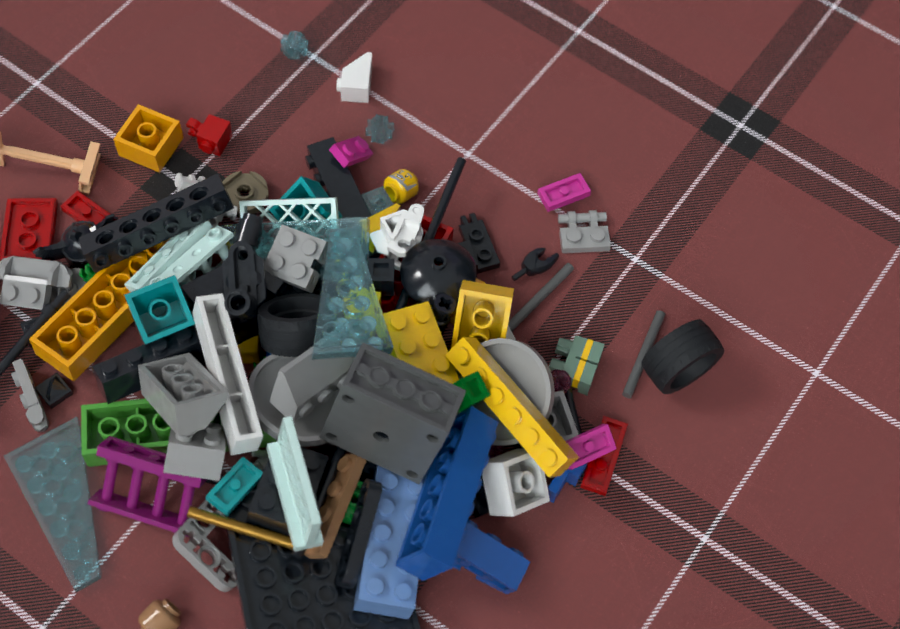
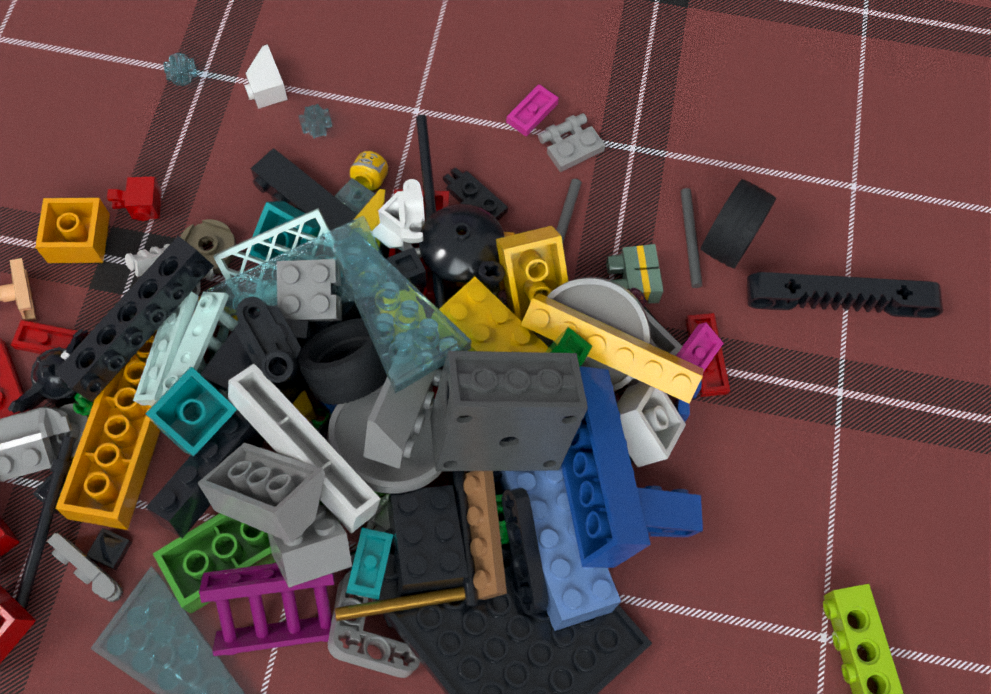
camera: 25 degrees left, 5 degrees up
(249, 229) = (242, 282): black brick -> none
(295, 488) = (445, 537): light aqua fence -> none
(351, 151) = (300, 155): dark pink plate -> none
(532, 265) = (540, 196): black hand -> none
(815, 489) = (911, 297): none -> black gear

